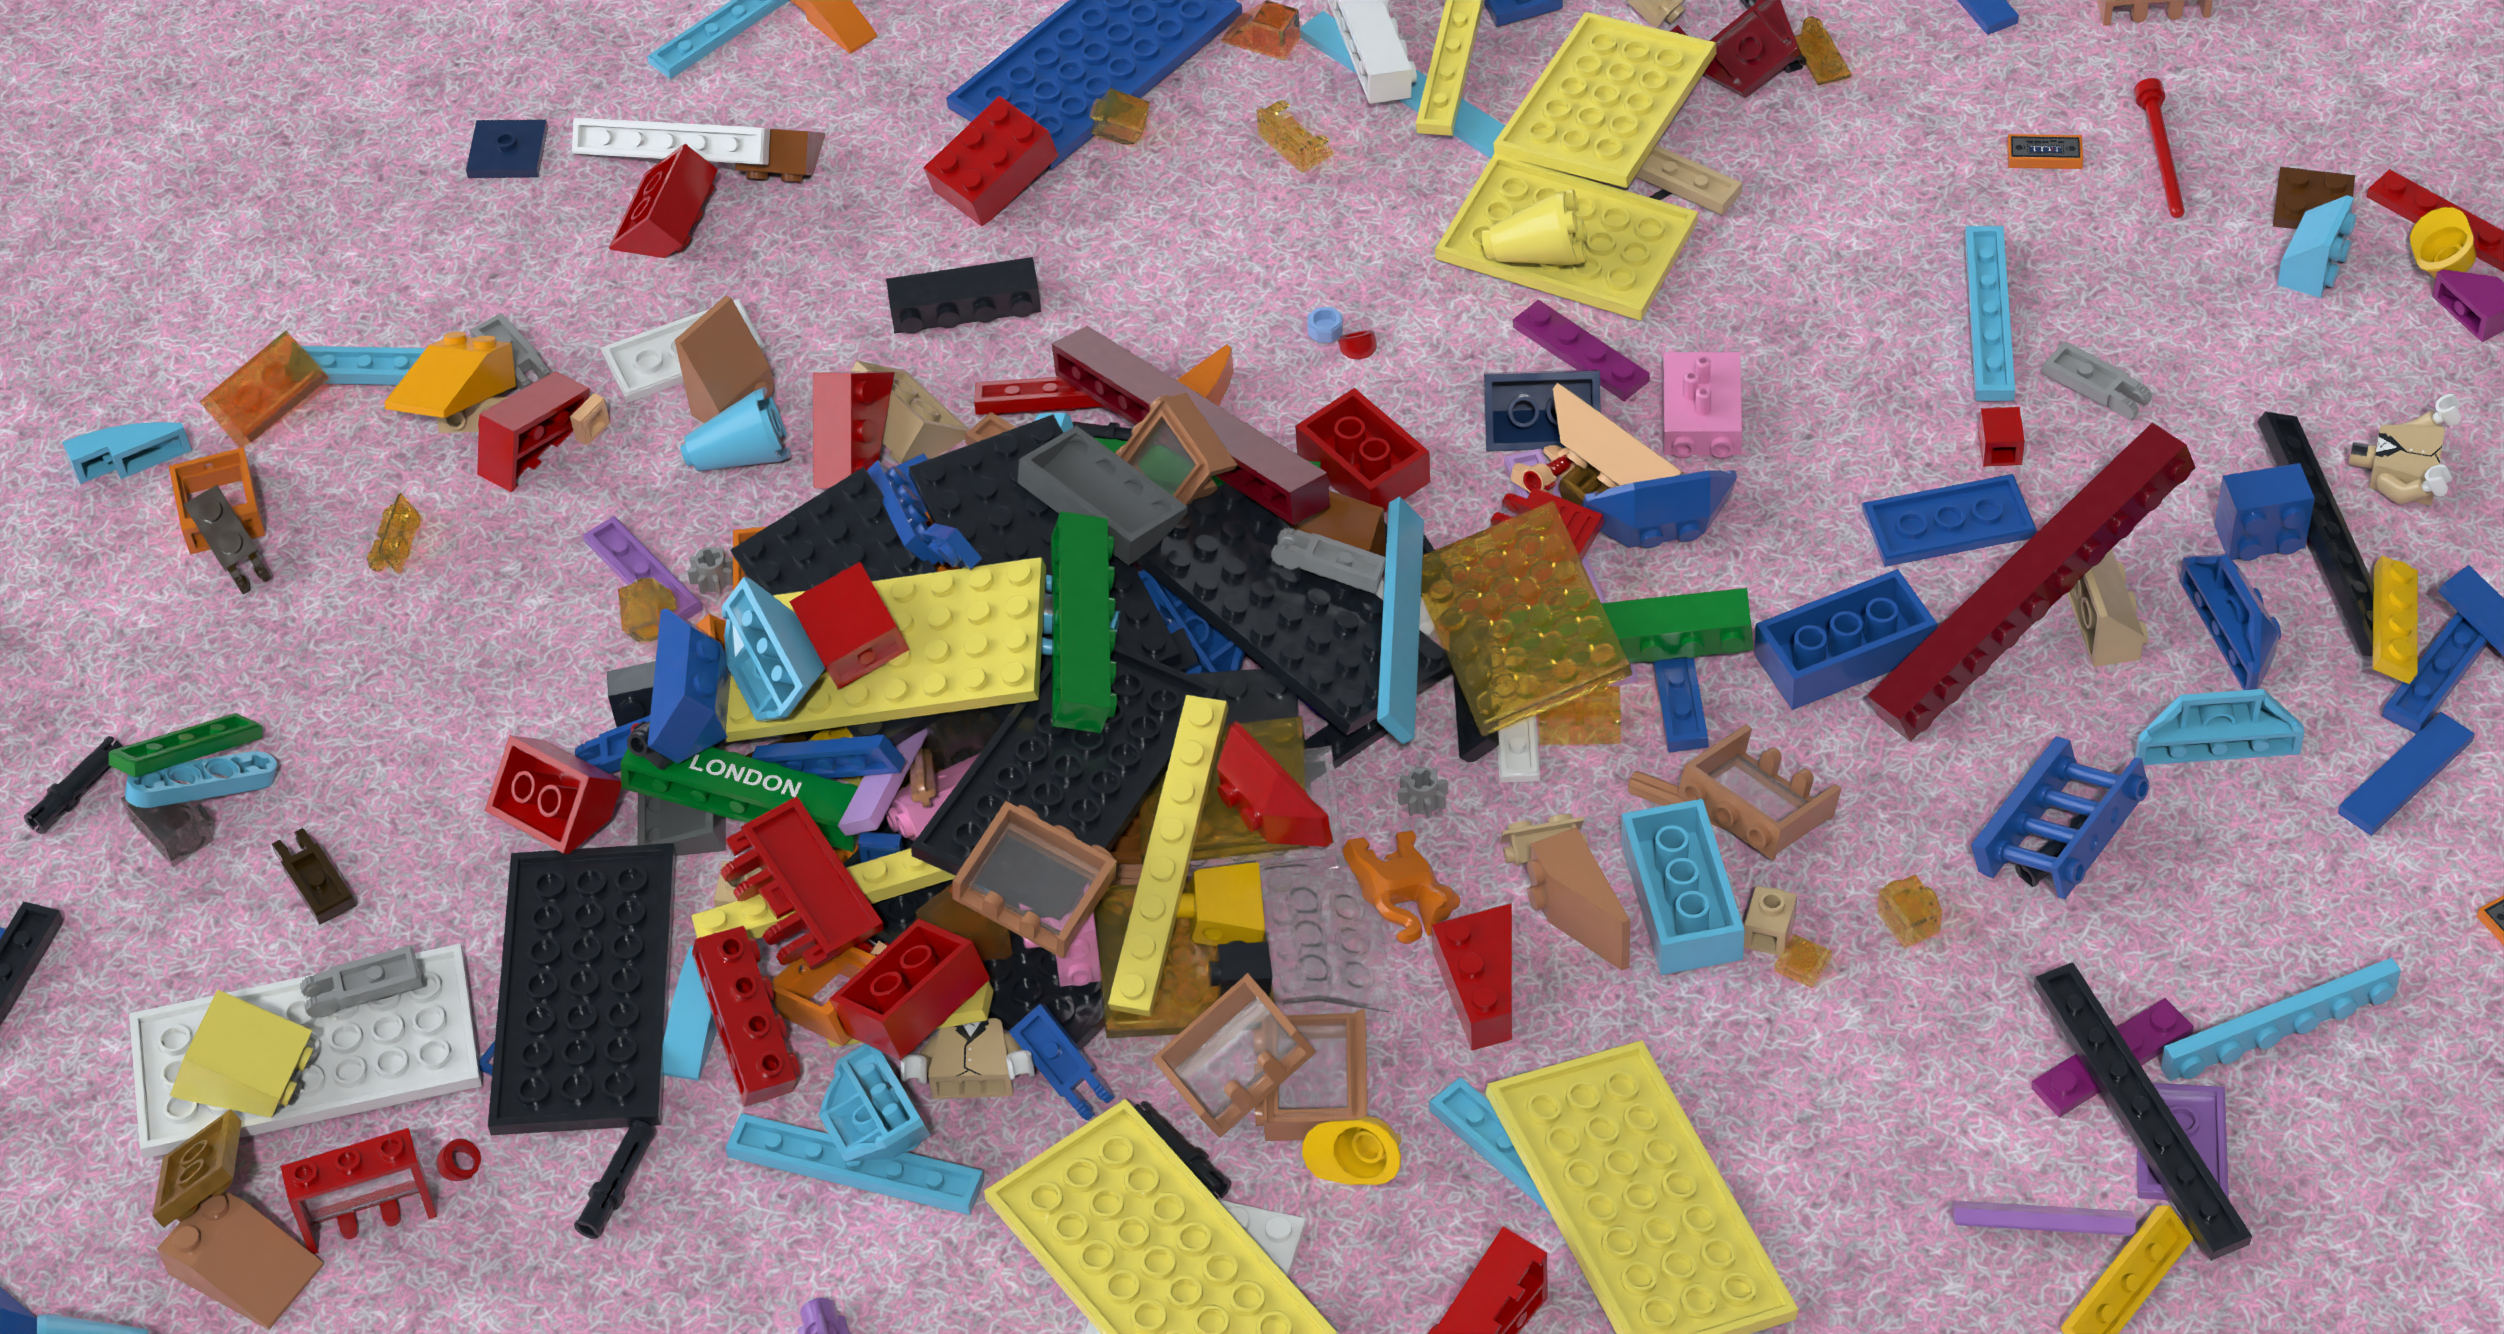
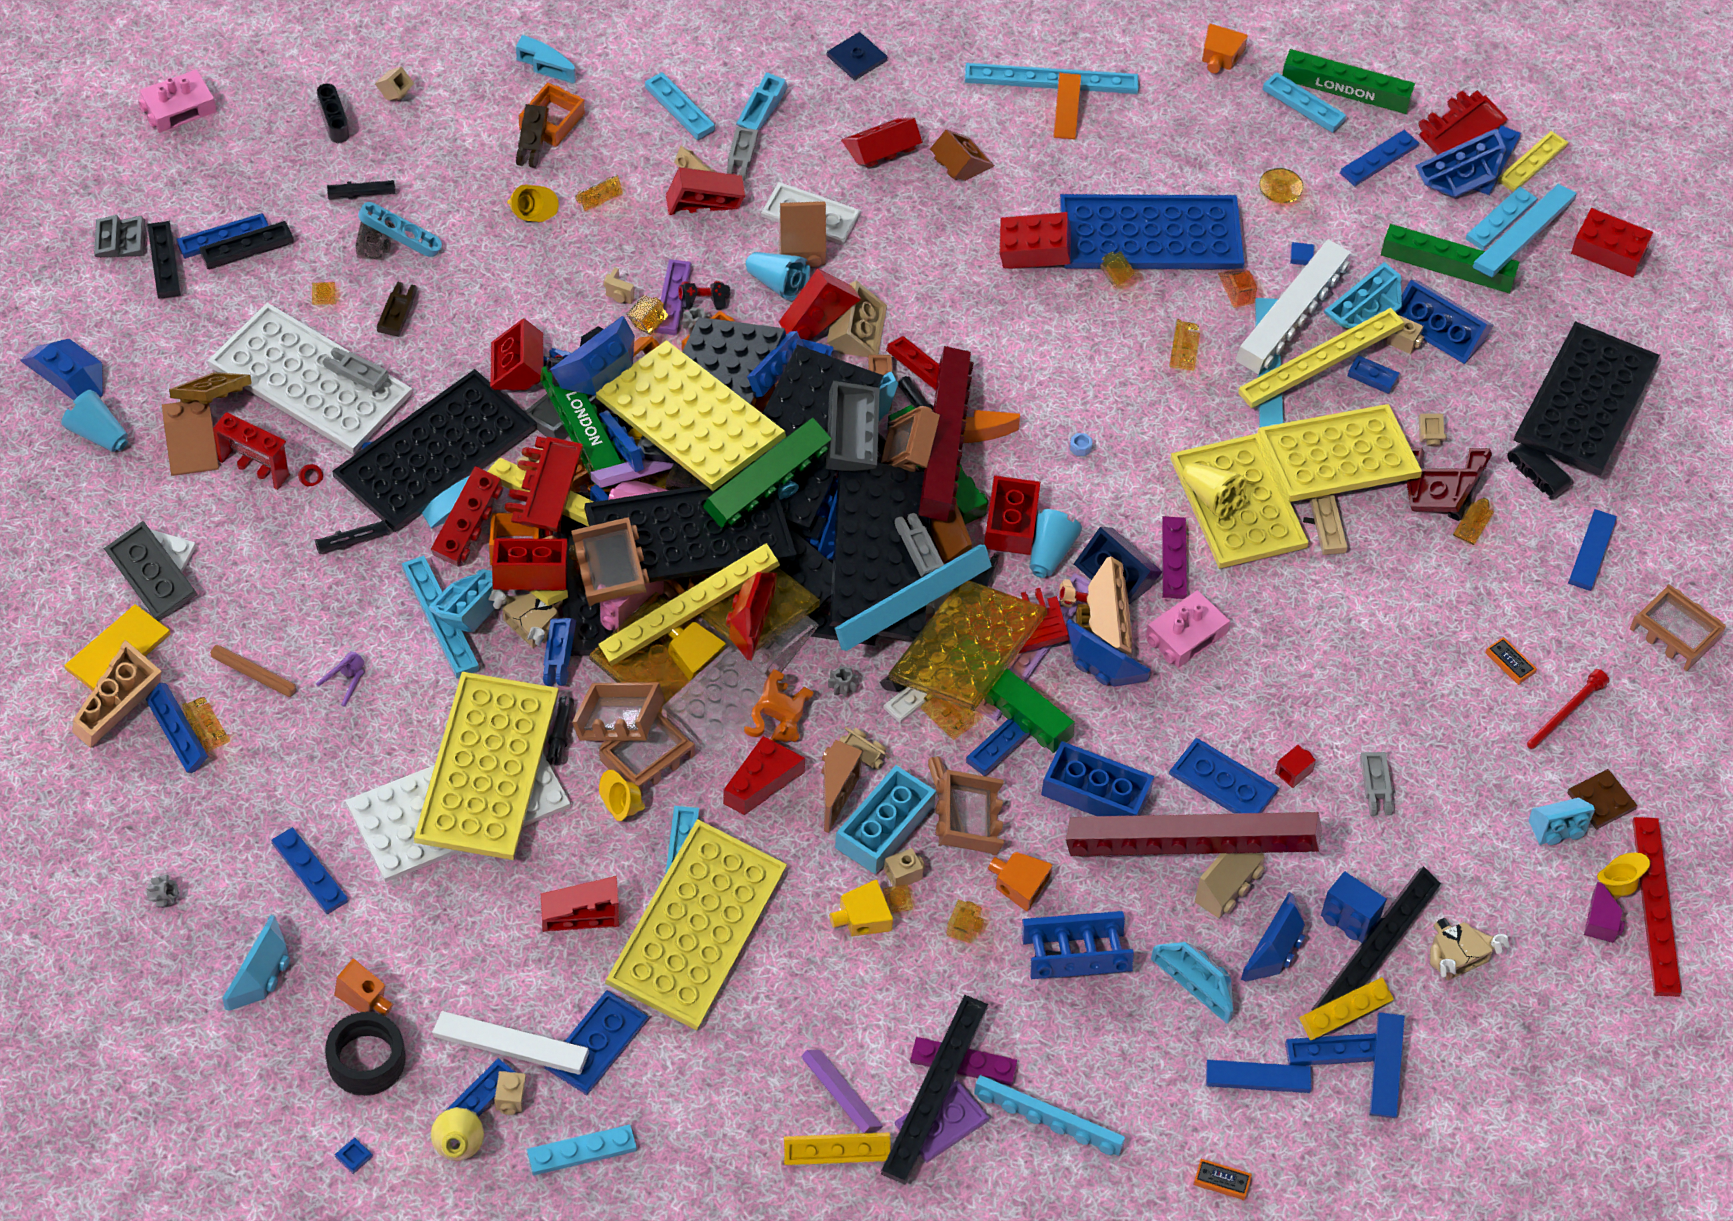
camera: 40 degrees right, 5 degrees up
(185, 745) = (409, 209): green tile -> none
(186, 942) = (323, 293): none -> clear yellow plate
(242, 1058) = (275, 357): light yellow slope -> none
(264, 389) = (627, 81): clear orange tile -> none
(329, 613) = (538, 200): none -> yellow piece
(454, 376) = (696, 141): light orange slope -> none
(464, 280) = (762, 102): none -> medium azure slope
(567, 616) = (618, 289): none -> tan bracket
(590, 419) = (733, 210): light nougat tile -> none
(660, 139) = (914, 107): white tile -> none
(691, 519) = (717, 291): none -> black piece
(767, 652) = (641, 372): medium azure wedge -> none
(849, 625) = (678, 389): red panel -> none
(923, 778) = (640, 482): nougat axle -> none
(950, 546) = (760, 394): blue plate -> none
(963, 295) = (948, 292): black brick -> none
(1238, 959) = (669, 678): black brick -> none
(1358, 344) = (1083, 468): red piece -> none
(1444, 430) = (1052, 541): none -> medium azure cone
(1794, 1005) = (863, 911): none -> yellow torso
(1902, 810) = (1021, 878): none -> orange torso
(1989, 313) = (1373, 708): medium azure plate -> none

